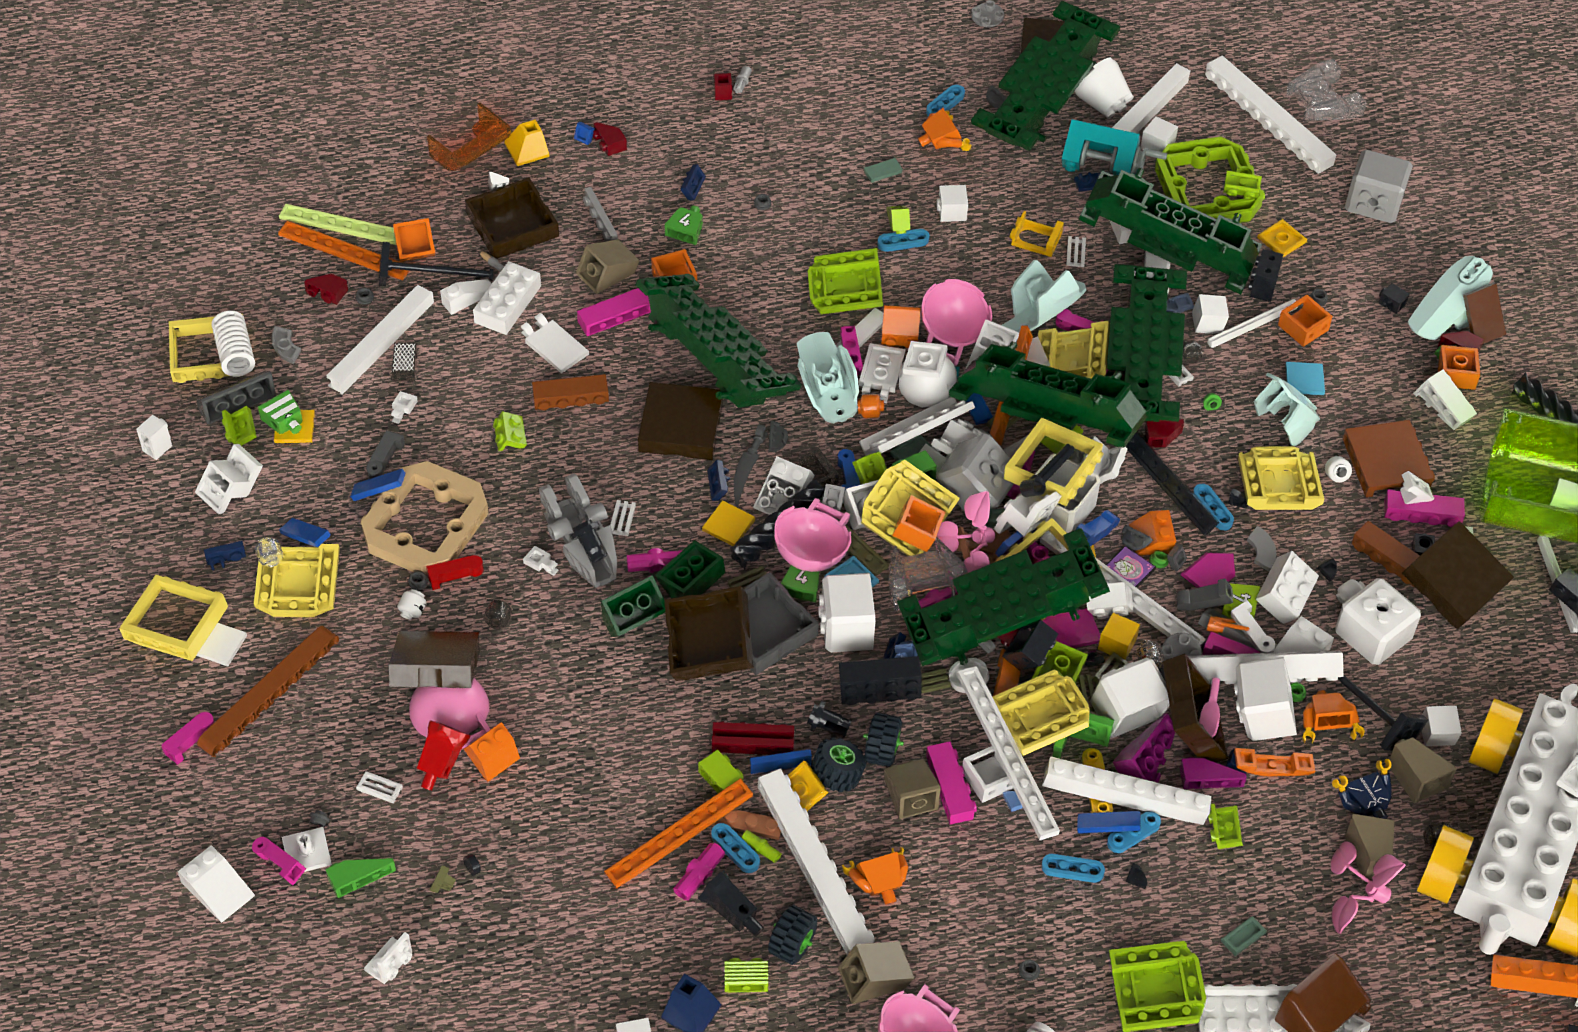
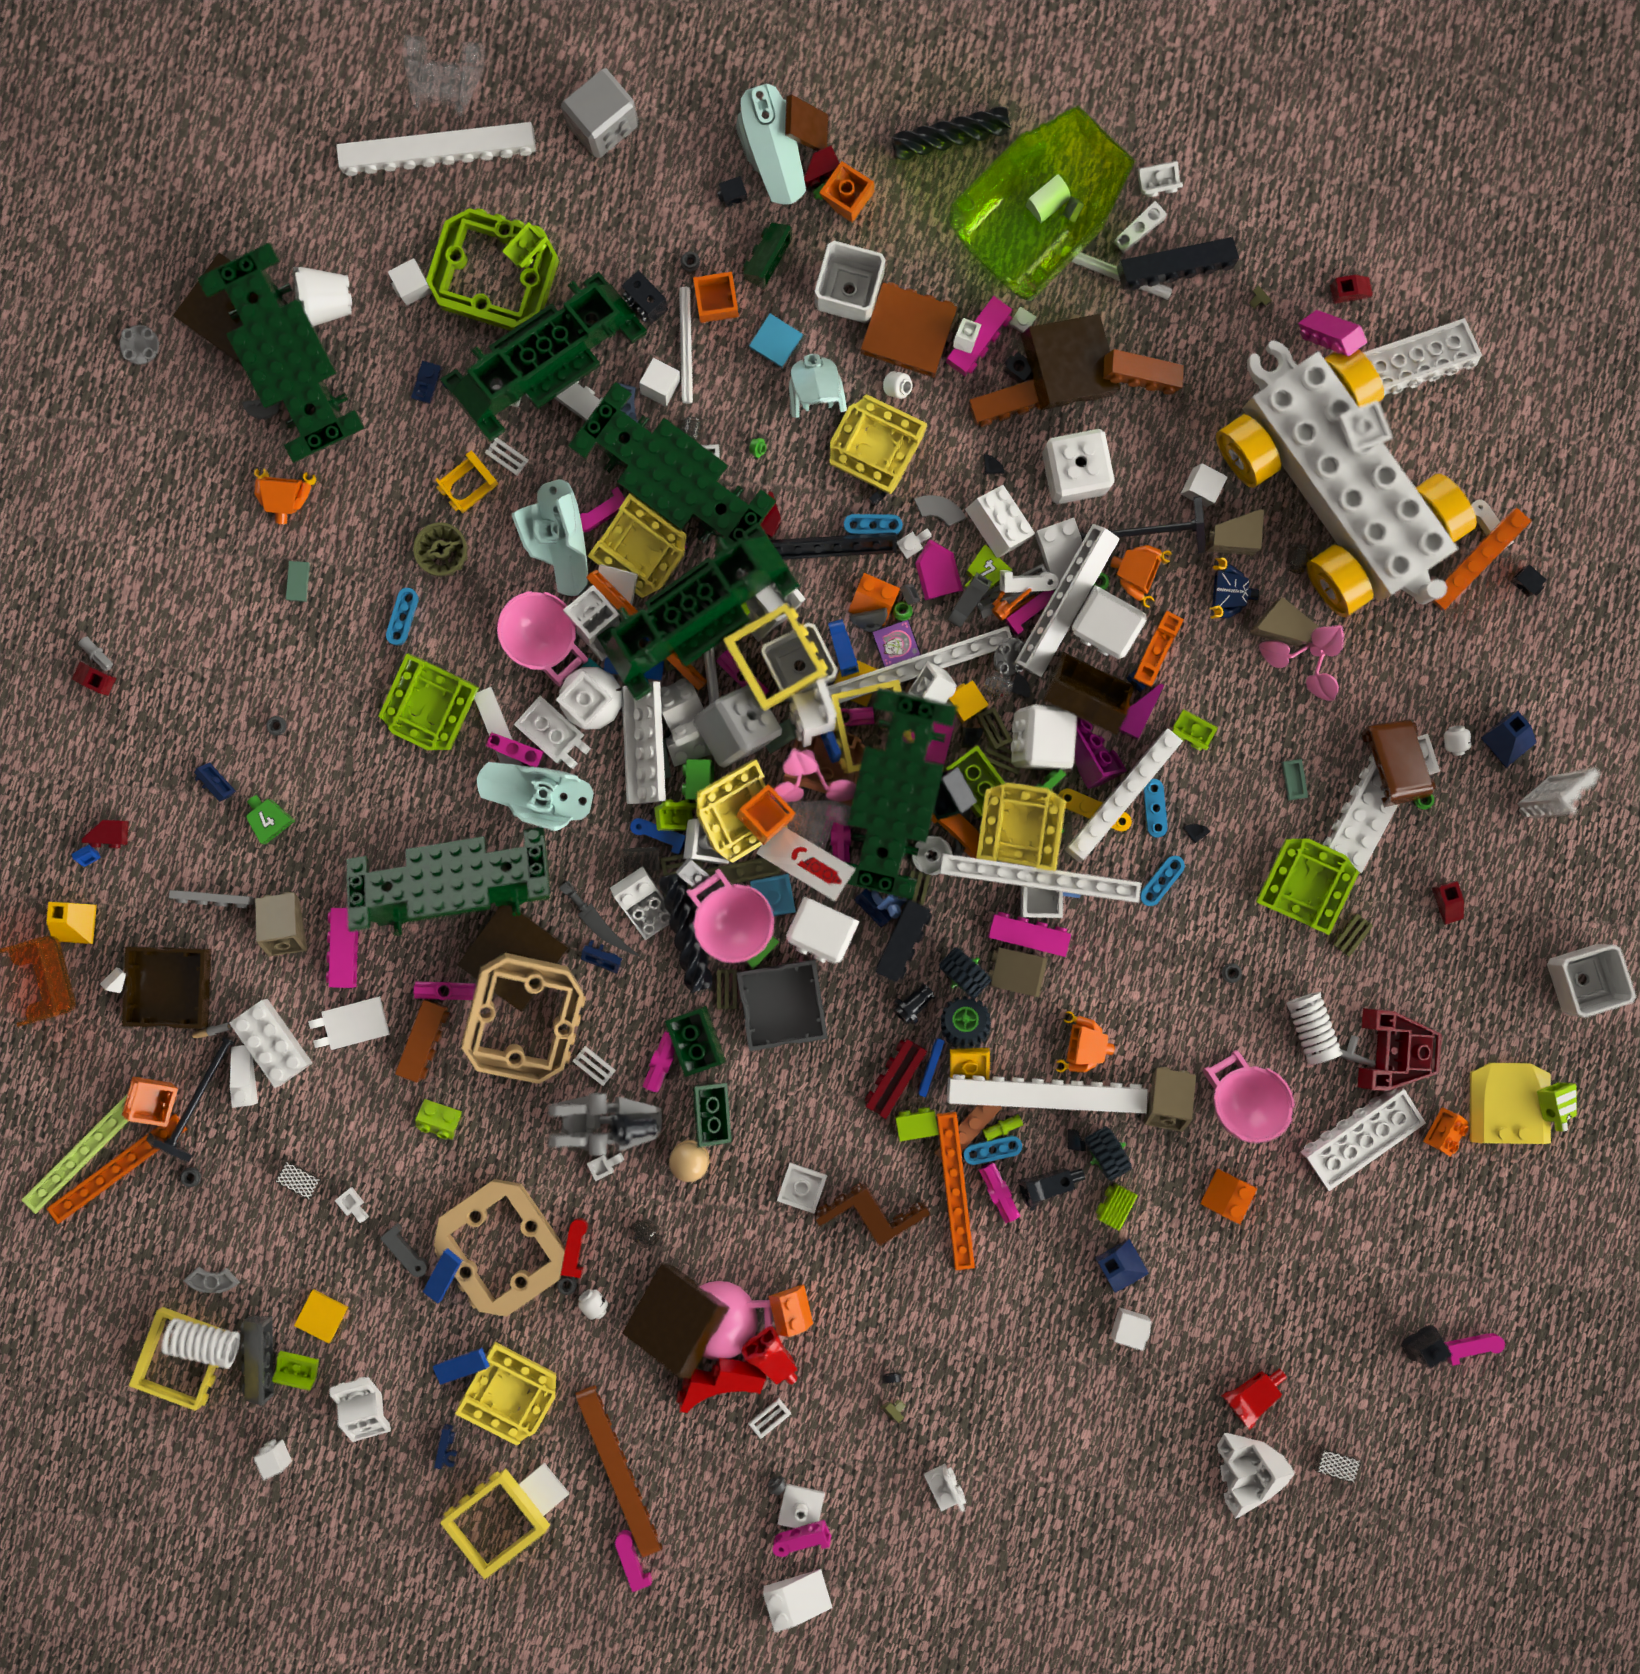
camera: 60 degrees left, 35 degrees up
(269, 552) = (474, 1414): clear head -> none
(282, 413) = (307, 1325): bright green torso -> none
(330, 286) = (162, 1208): dark red slope -> none
(354, 874) = (848, 1483): bright green slope -> none
(380, 339) = (257, 1188): white tile -> none
(401, 723) = (724, 1377): none -> red arch
(582, 615) = (688, 1161): none -> tan tile
(608, 714) = (802, 1188): none -> white plate
(610, 407) = (525, 1067): none -> tan panel
(618, 771) = (872, 1213): none -> reddish brown bracket
(622, 390) = (432, 990): none -> dark pink piece
(673, 264) = (327, 866): orange piece -> none
(709, 634) = (777, 1065): dark brown tile -> none
(728, 523) = (653, 973): yellow tile -> none
(777, 438) = (577, 873): dark grey tile -> none
(870, 406) = (591, 768): orange head -> none
(899, 218) = (375, 607): lime slope -> none
(899, 570) = (807, 862): none -> white sticker
(900, 325) = (517, 688): orange slope -> none
(948, 97) = (235, 456): dark azure plate -> none
(952, 203) = (385, 542): white head -> none
(978, 237) = (424, 555): none -> olive gear
(1036, 483) = (804, 698): black axle -> none
(1109, 822) = (1139, 825): blue tile -> none
(1121, 144) = (425, 335): teal piece -> none
(1154, 100) = (362, 268): white tile -> none
(1211, 712) = (1088, 675): bright pink piece -> none
(1220, 542) = (912, 544): none -> white plate
(1282, 238) = (598, 245): yellow tile -> none
(1348, 590) = (1031, 465): white head -> none
(1365, 341) = (767, 254): none -> dark green slope
(1390, 391) = (849, 266): none -> white plate
(1446, 399) = (878, 230): white wedge -> none
(1495, 631) = (1143, 372): none -> dark orange brick

